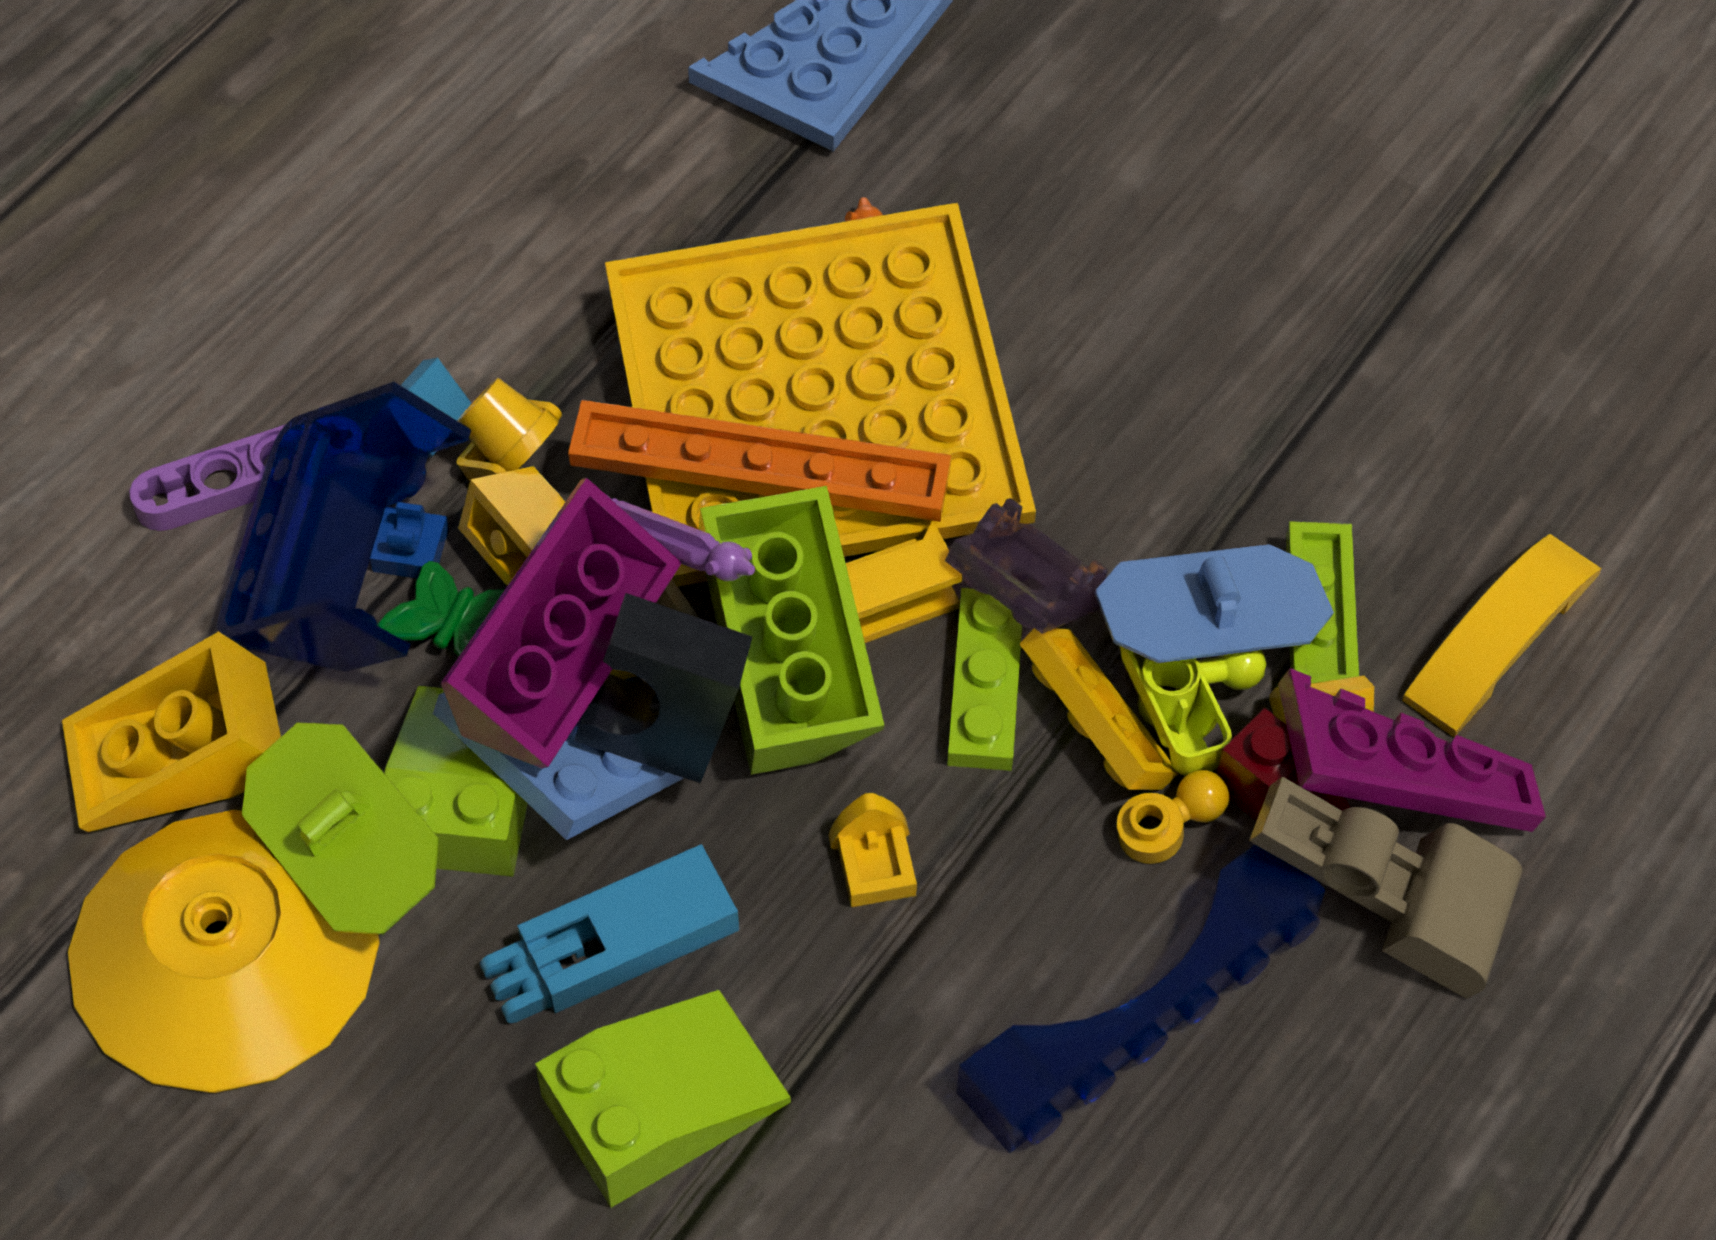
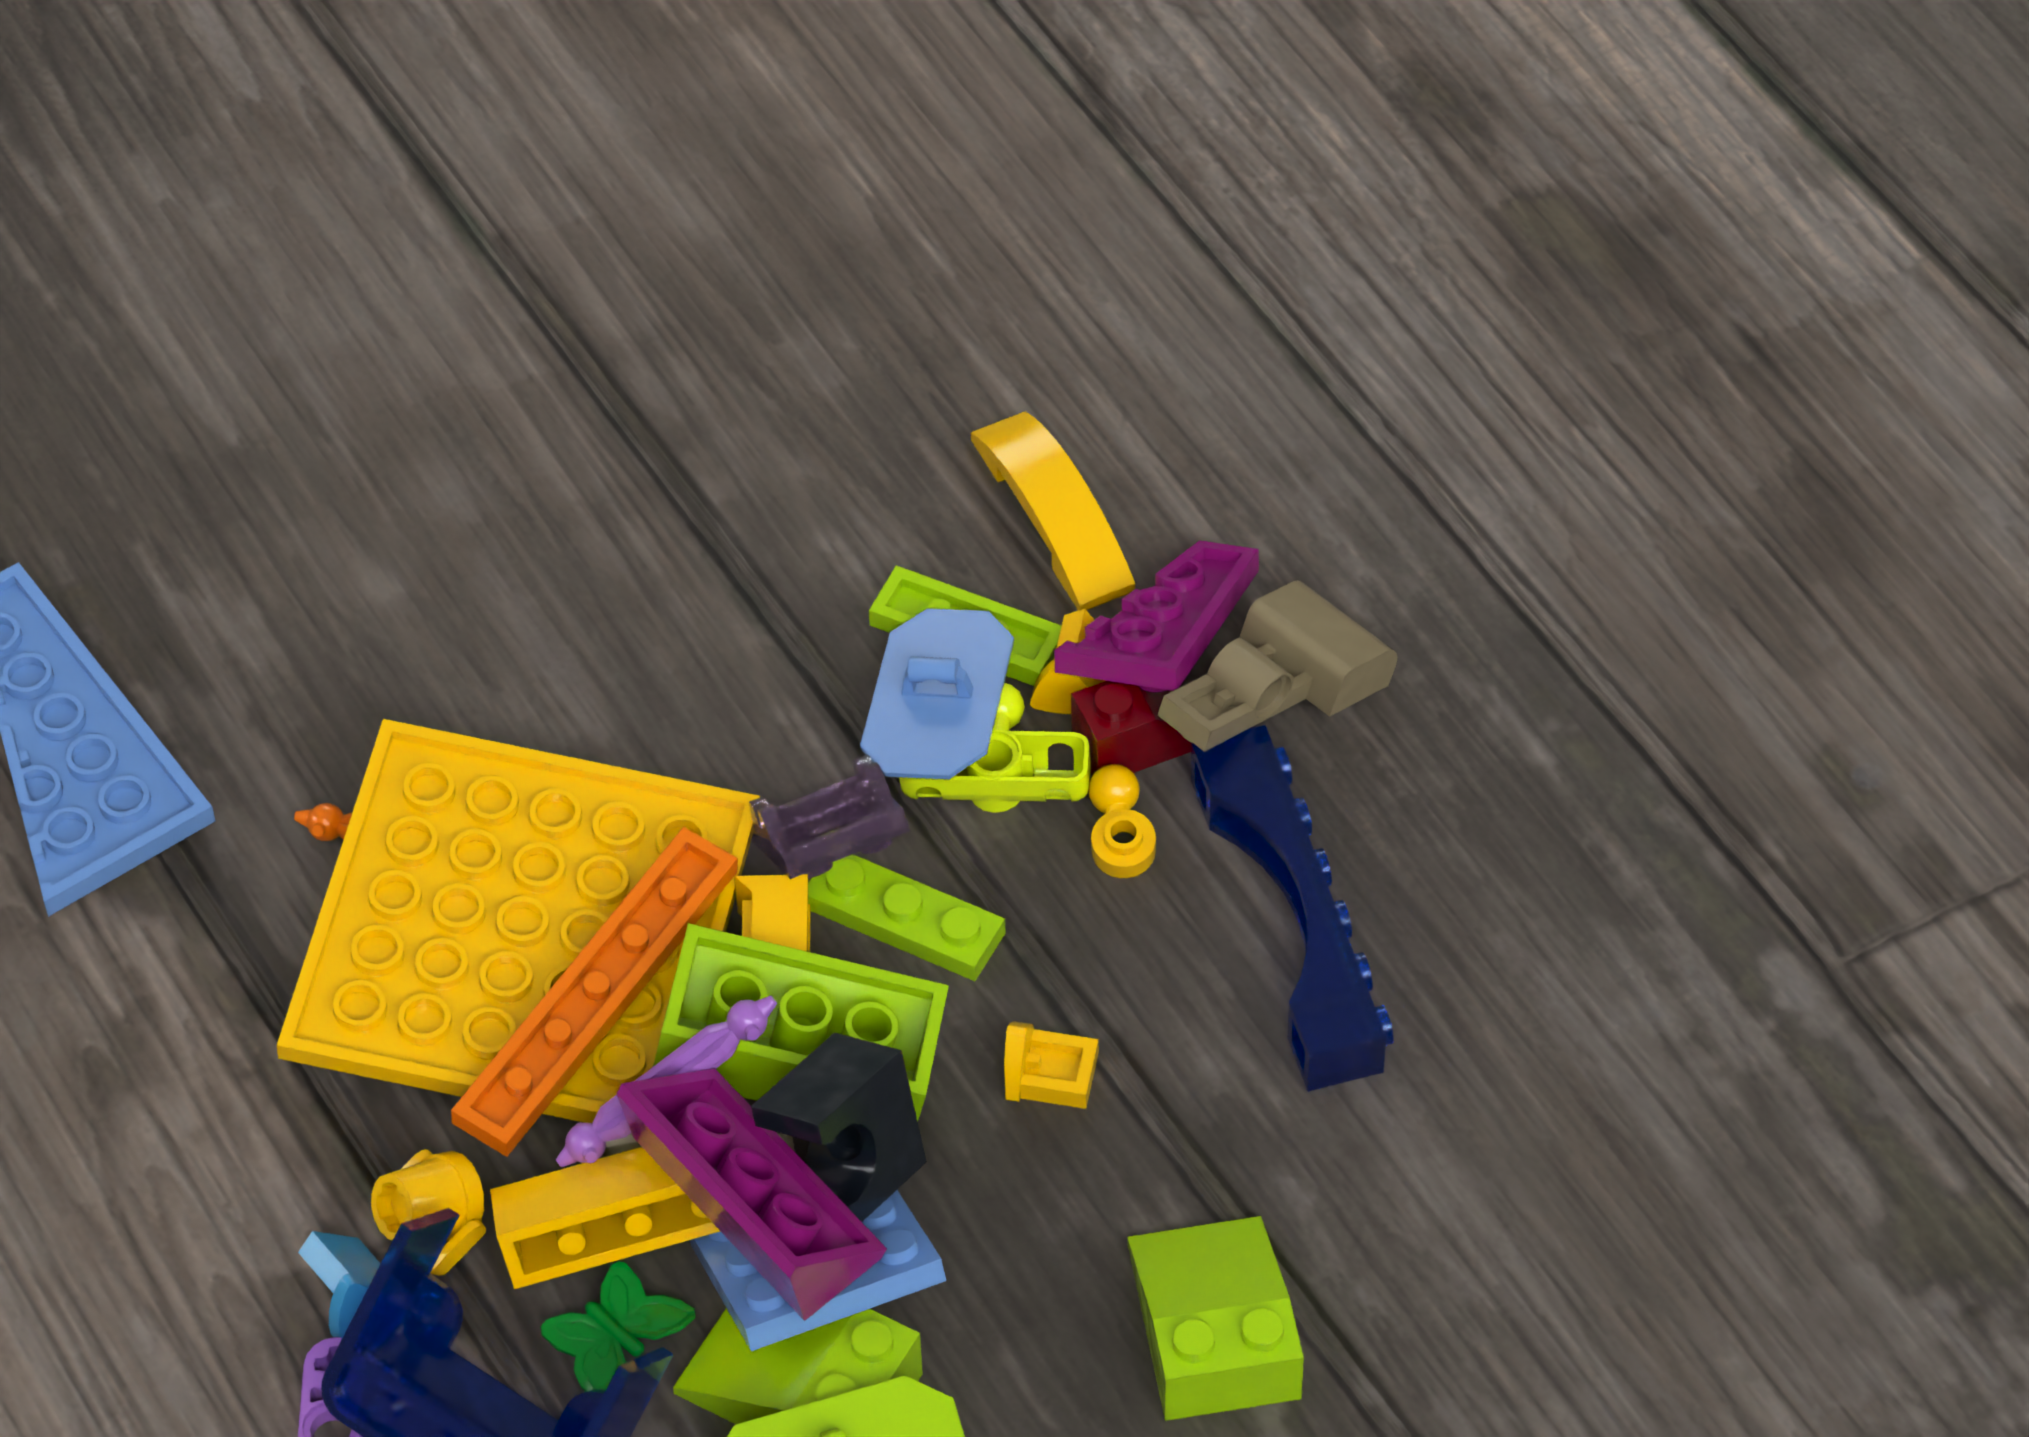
camera: 65 degrees left, 5 degrees down
(408, 540) = (500, 1343): blue tile -> none
(637, 920) = (1034, 1268): dark azure hinge -> none
(1098, 710) = (991, 834): yellow plate -> none

